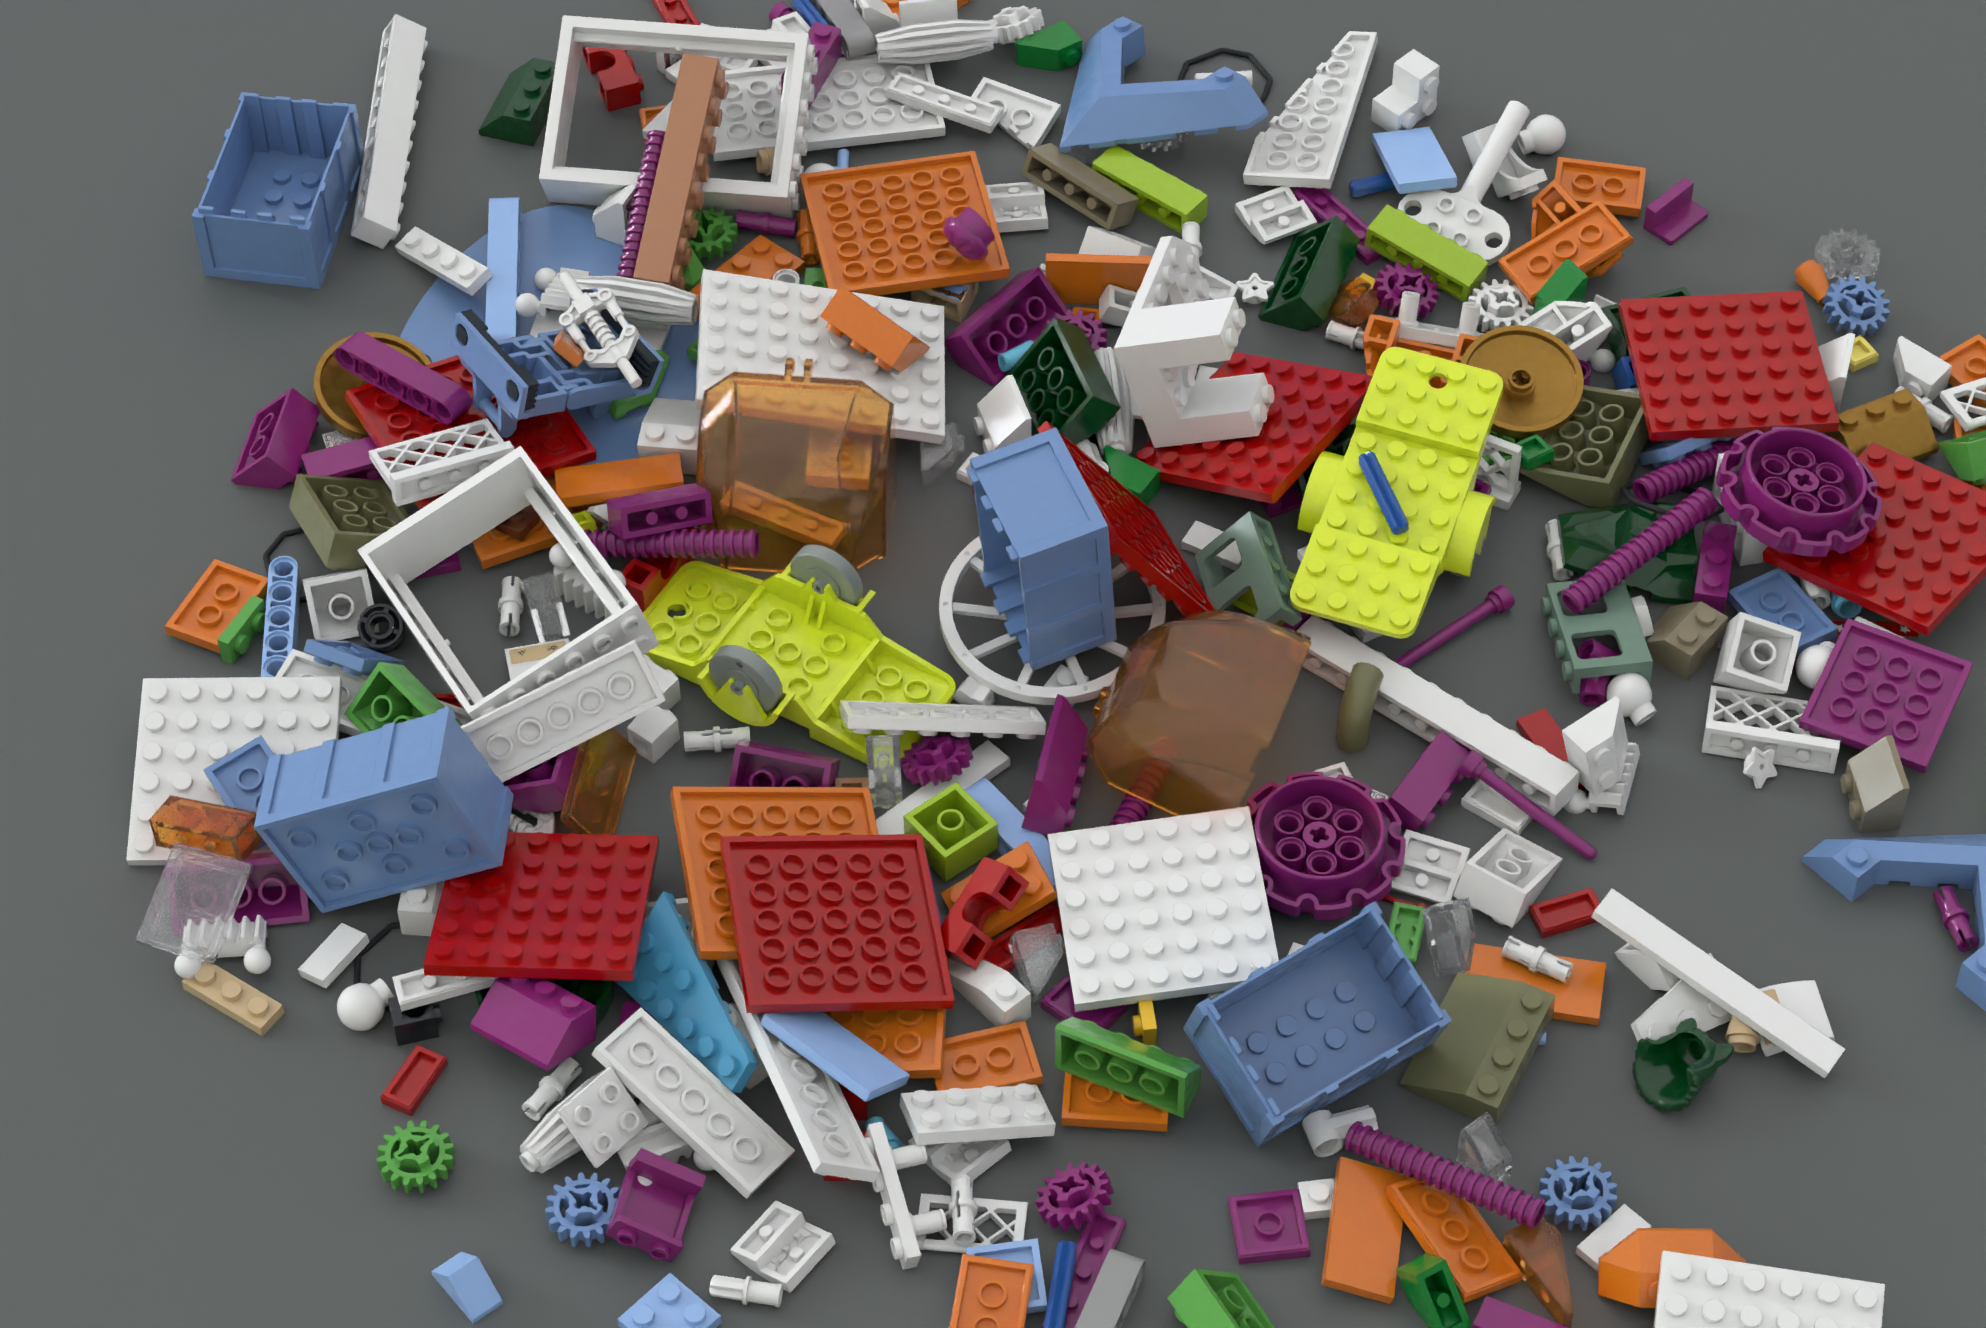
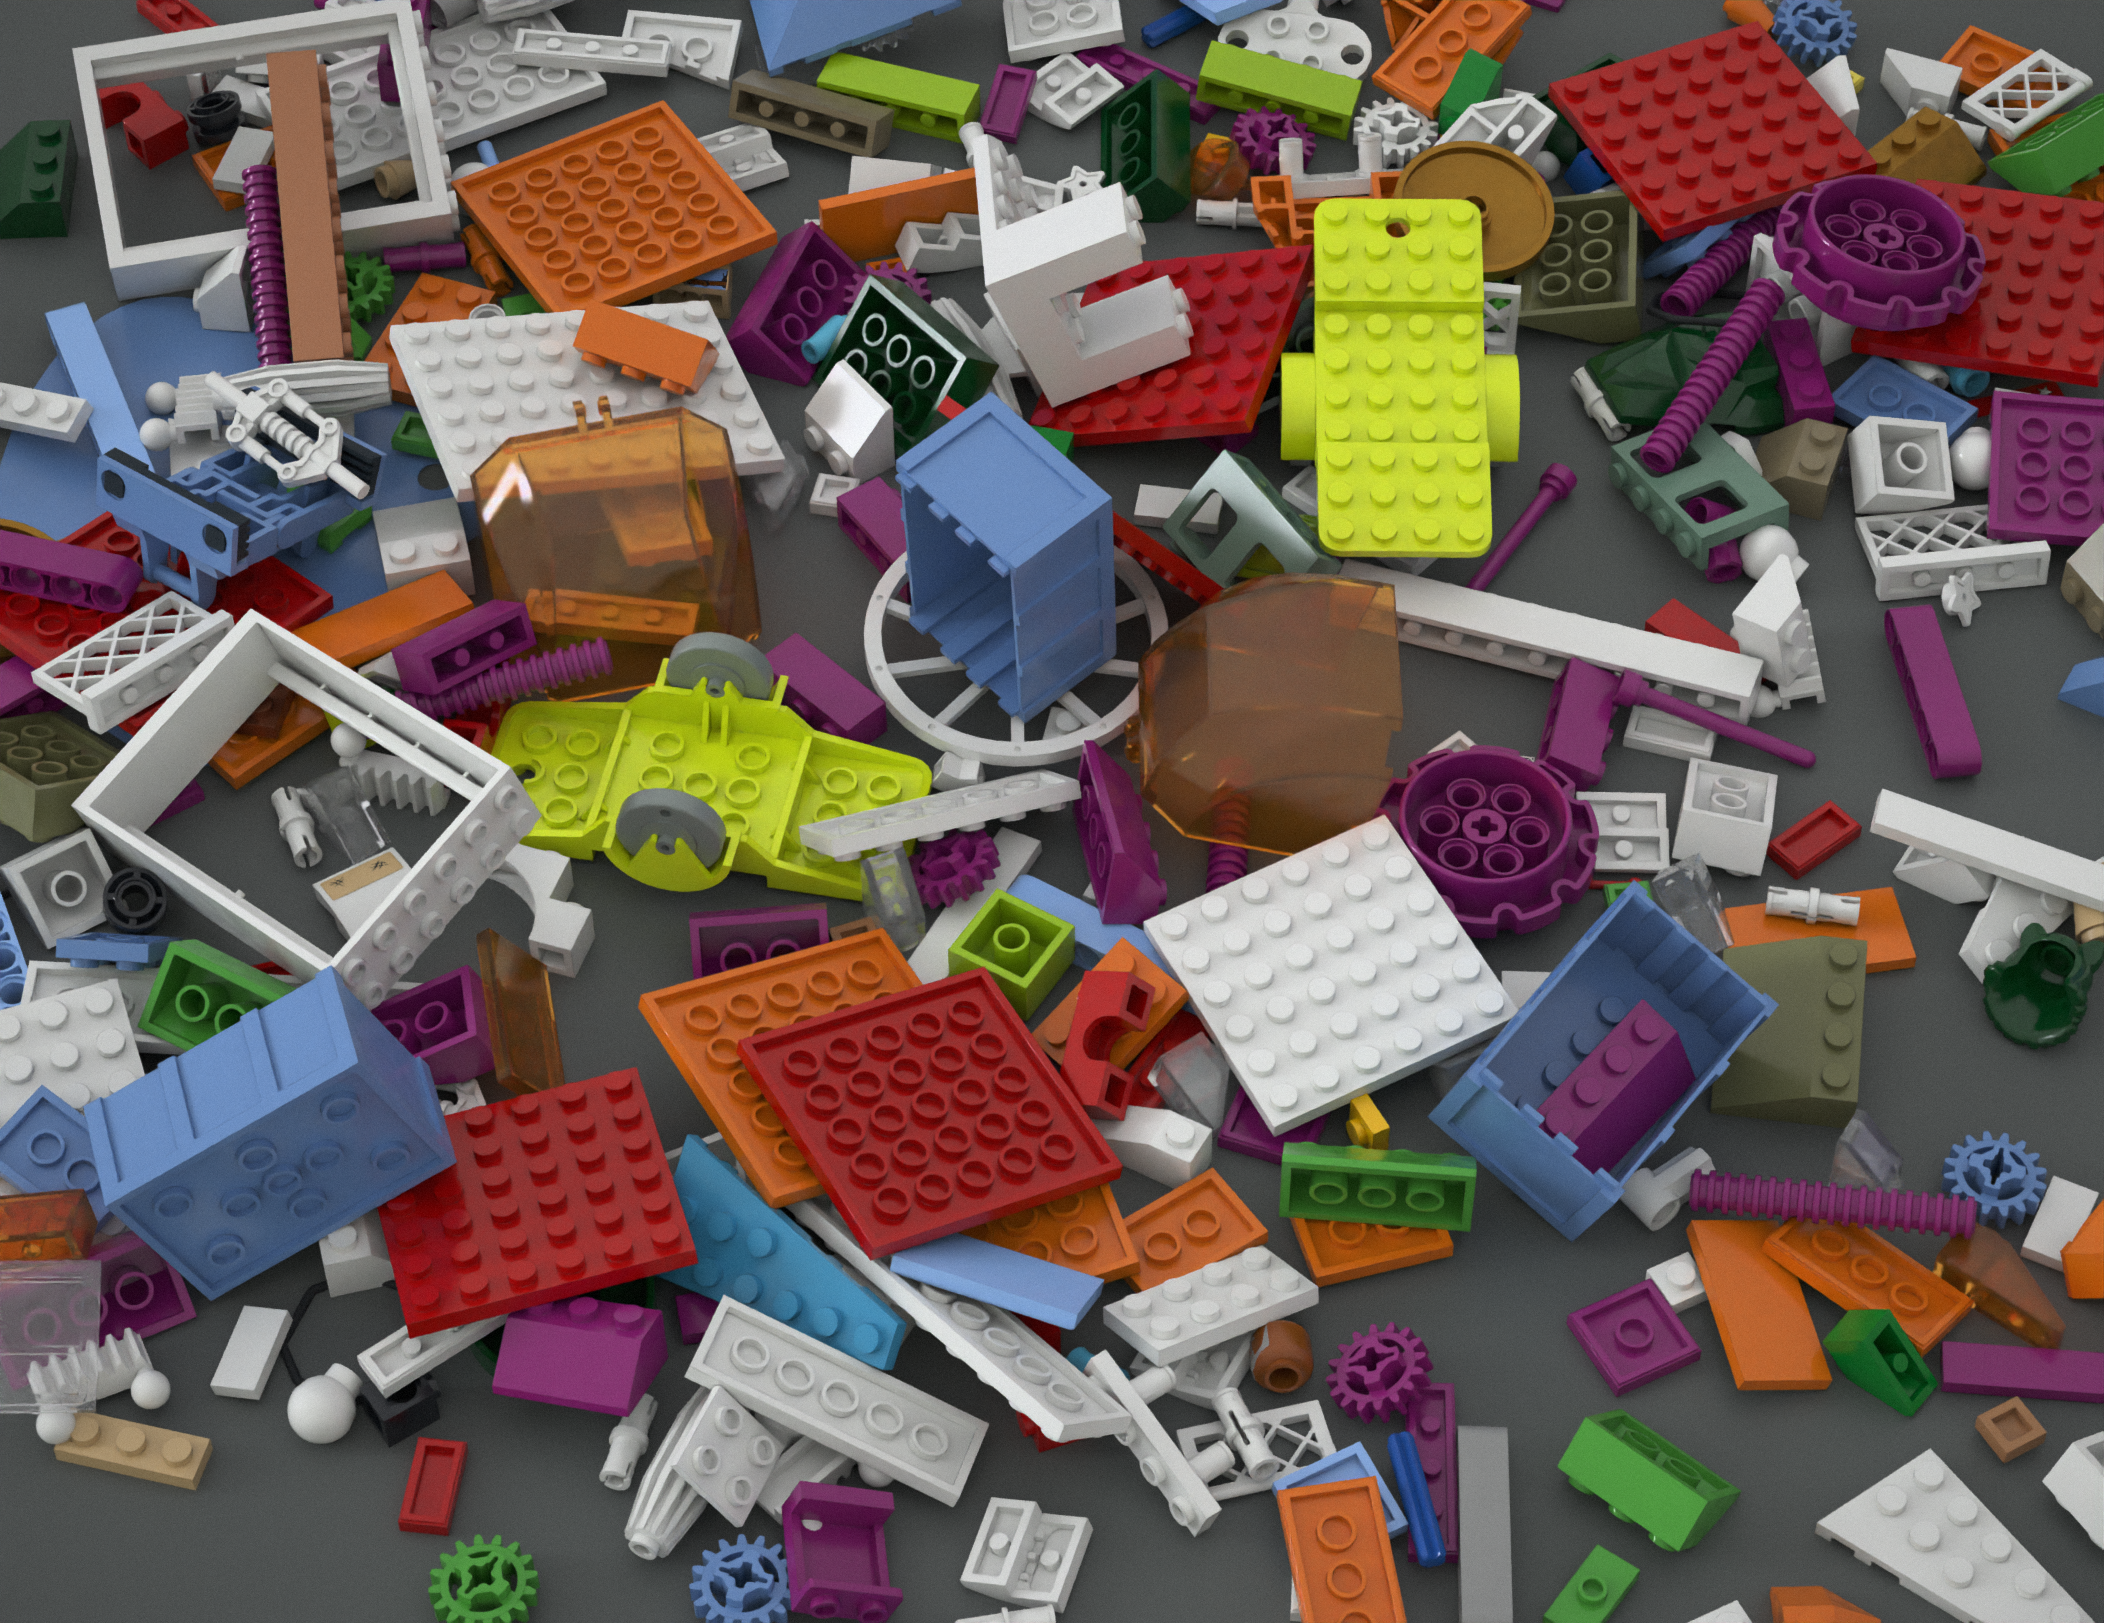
camera: 20 degrees left, 0 degrees up
(565, 712) = (465, 931): white plate -> none
(568, 349) = (254, 470): orange tile -> none
(661, 85) = (216, 117): none -> black wheel
(715, 739) = (647, 923): white pin -> none
(903, 611) = (826, 693): none -> magenta brick
(969, 234) = (714, 199): magenta piece -> none
(1013, 1164) = (1281, 1356): none -> dark orange head
(1226, 214) = (1008, 102): none -> magenta tile
(1315, 1050) = (1619, 1089): none -> magenta slope
(1357, 707) = (1454, 657): olive cylinder -> none
(1383, 493) = (1387, 382): blue axle -> none
(1535, 452) = (1532, 294): green tile -> none
(1704, 829) = (1932, 692): none -> magenta beam

